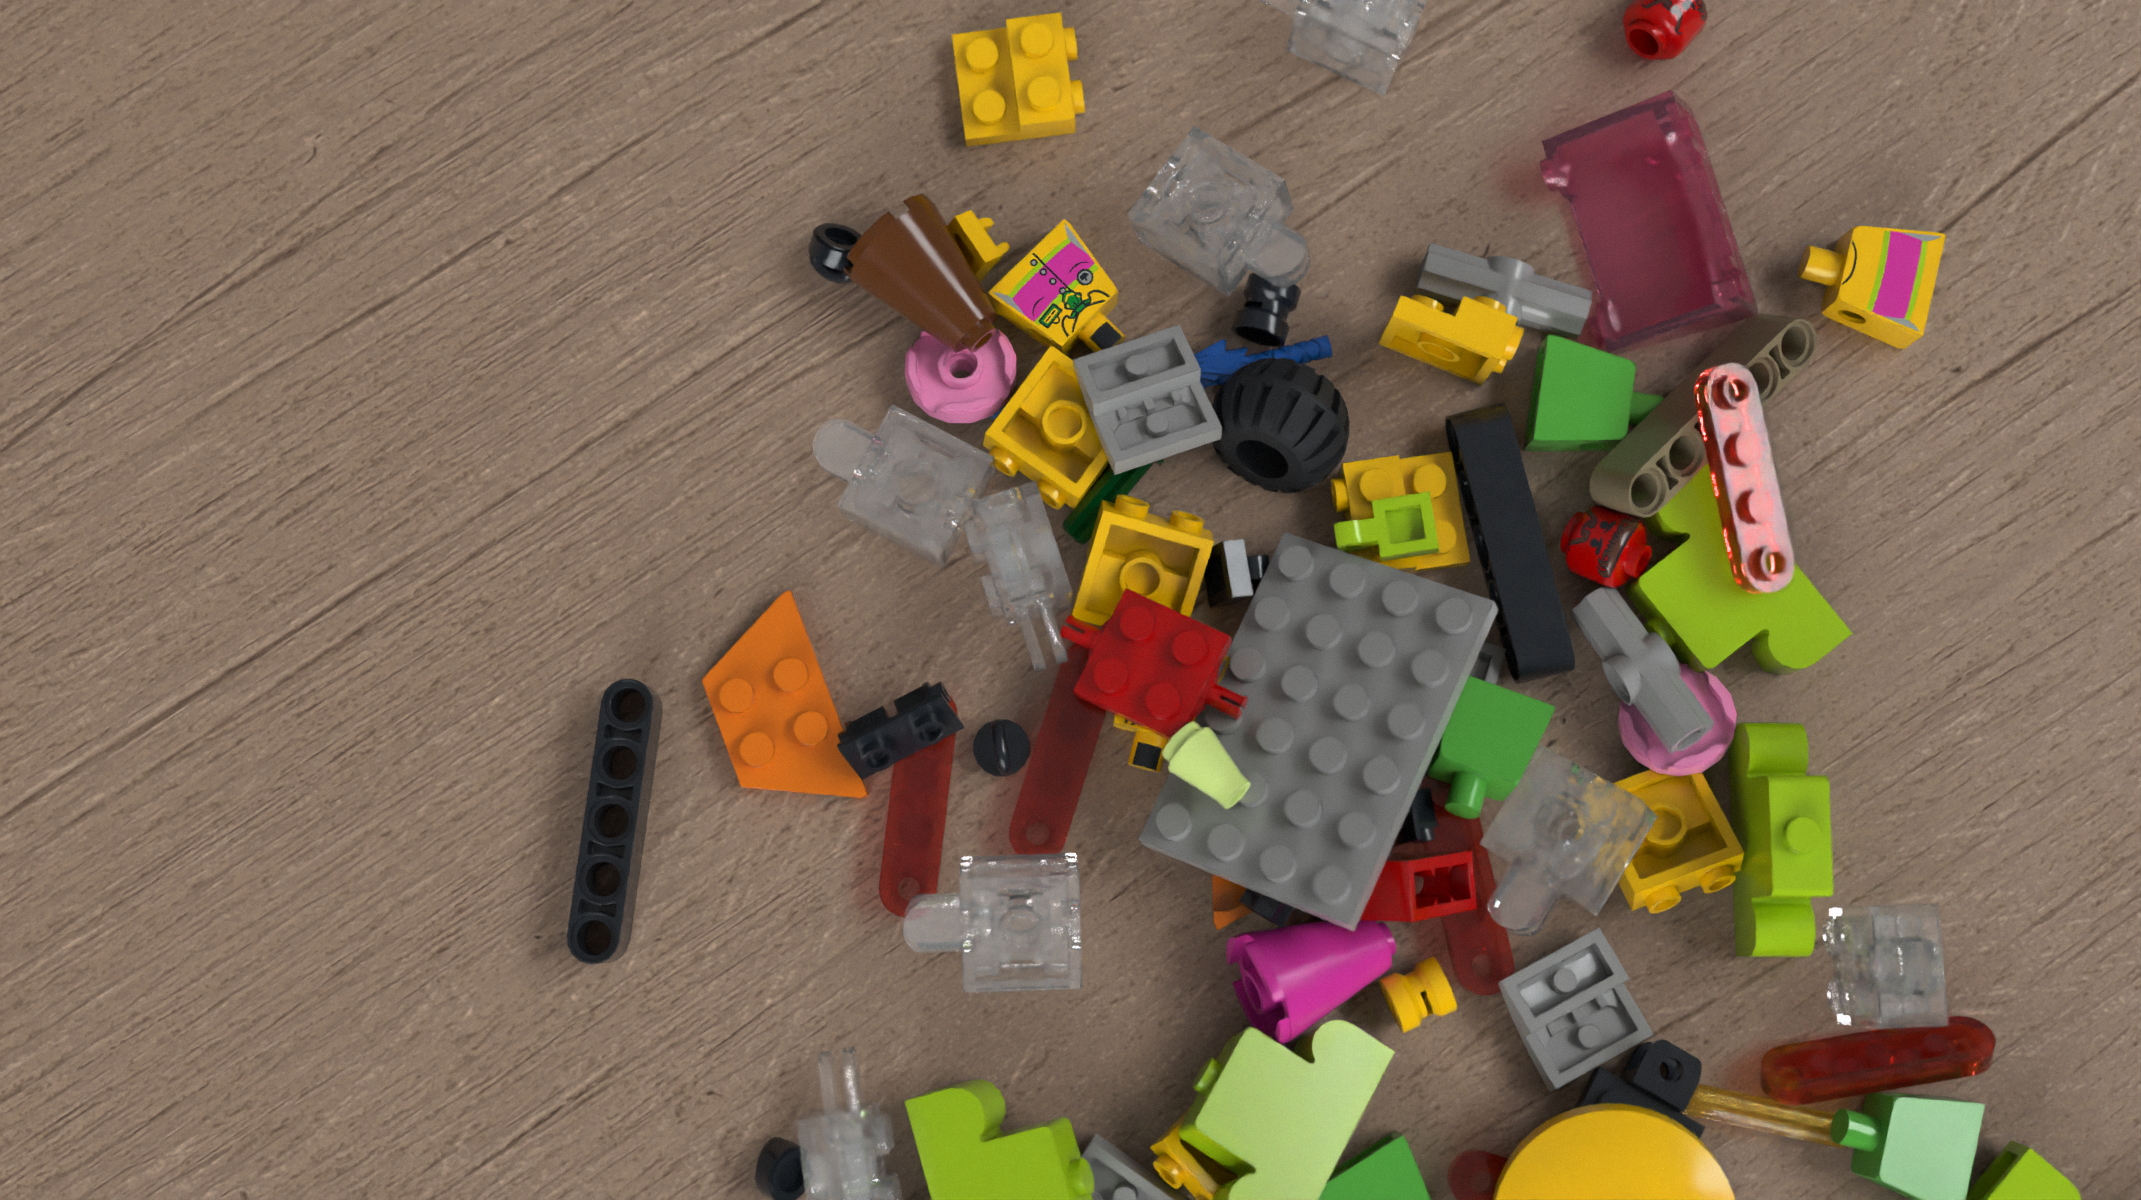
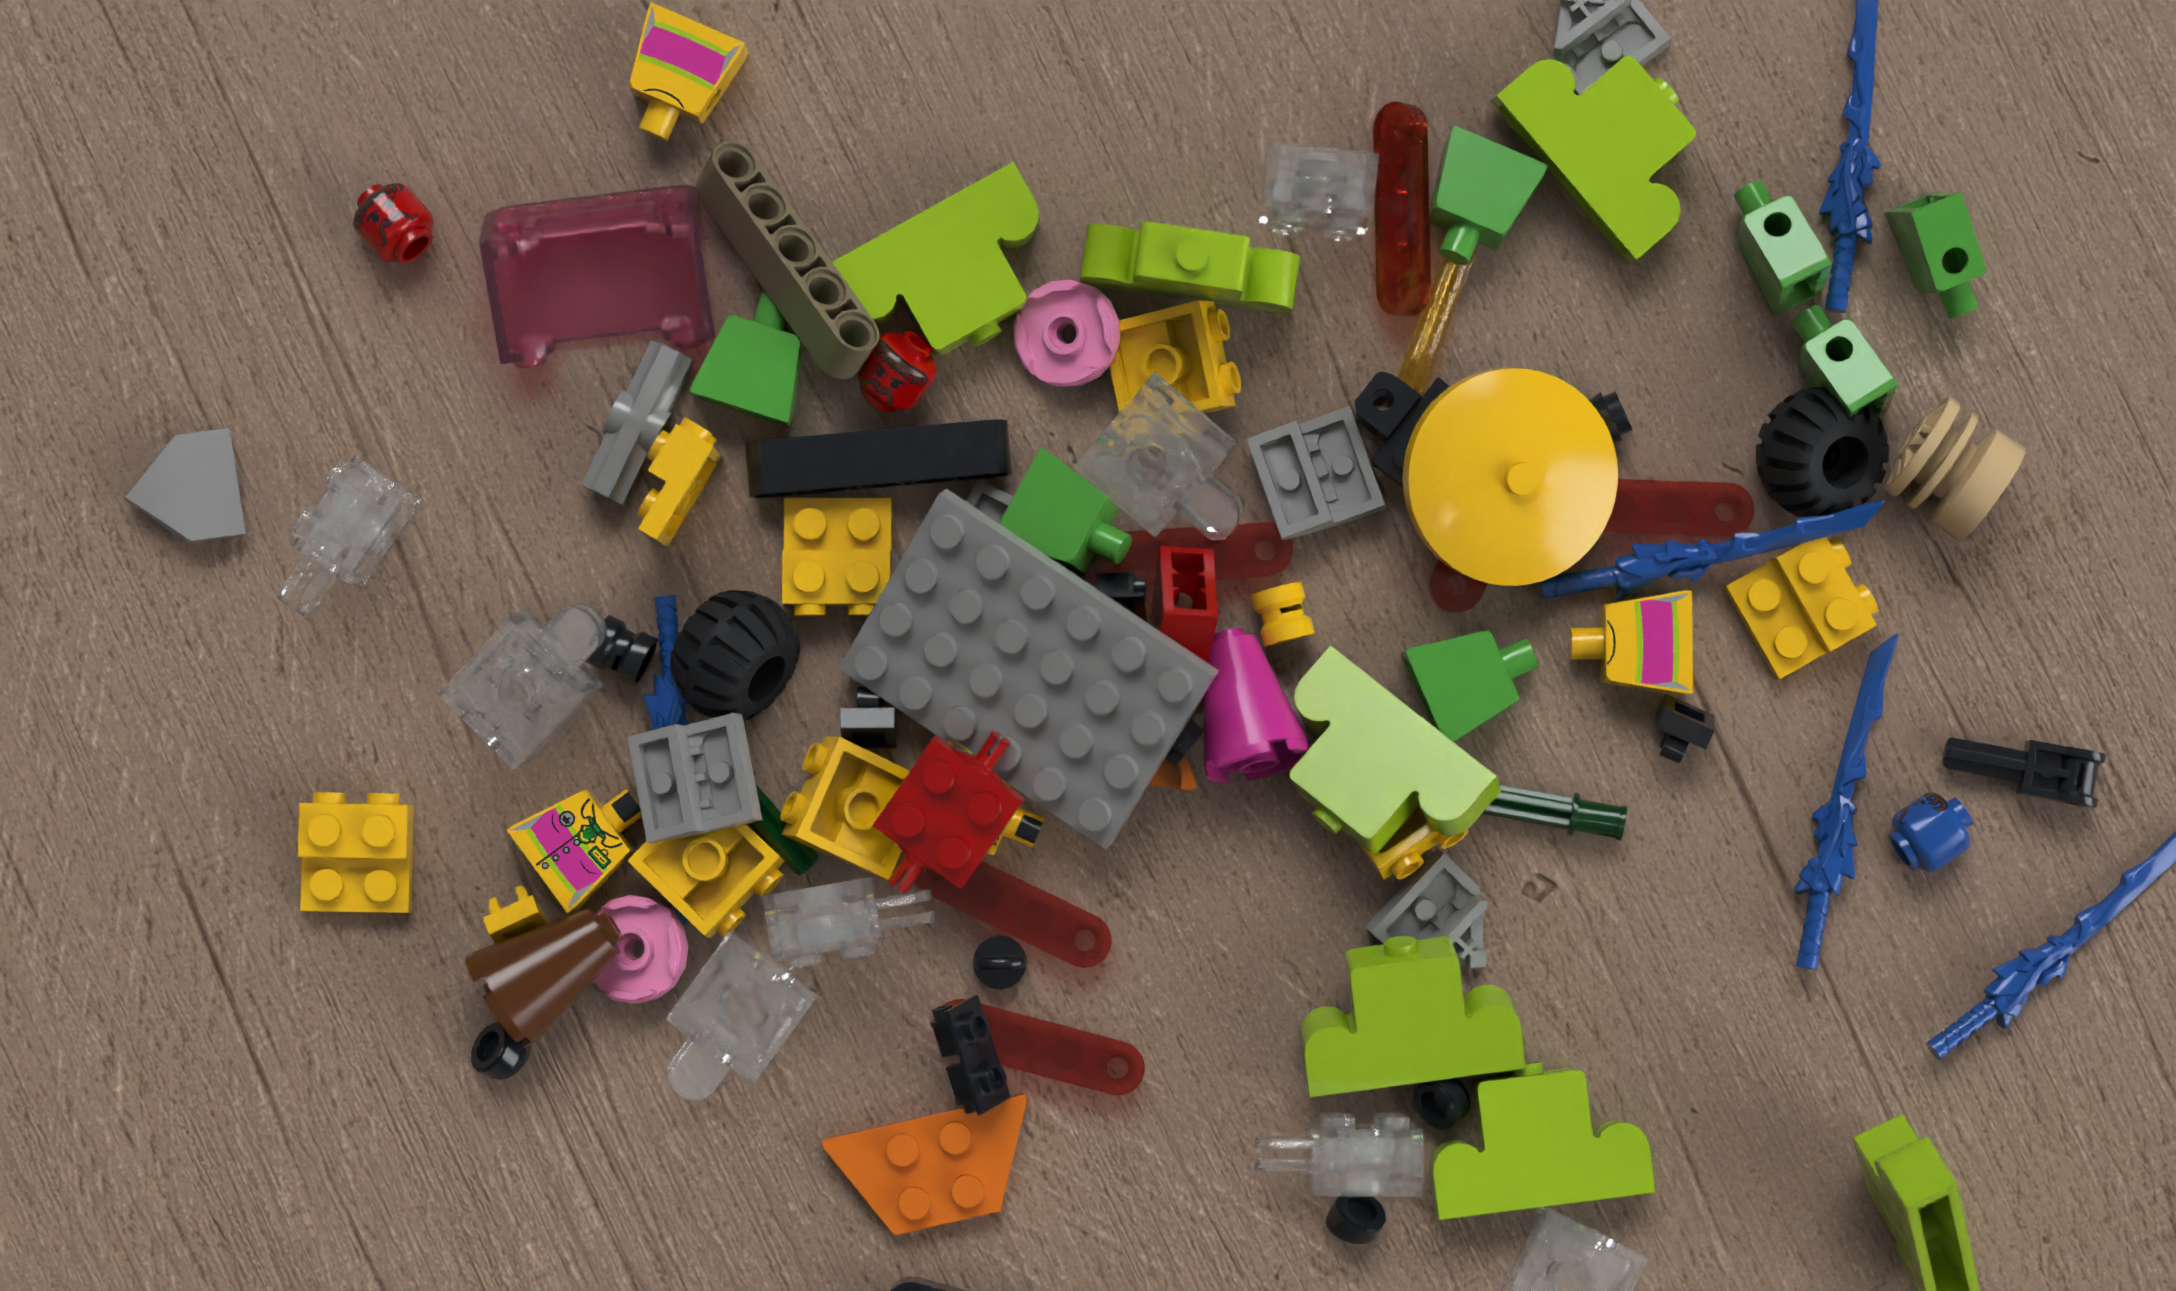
camera: 85 degrees left, 5 degrees up
(1003, 943) = (1182, 984): clear brick -> none
(1204, 763) = (1046, 780): yellowish green cone -> none
(1399, 527) = (853, 563): lime plate -> none
(1642, 669) = (1016, 360): light grey piece -> none
(1744, 478) = (856, 239): clear red plate -> none

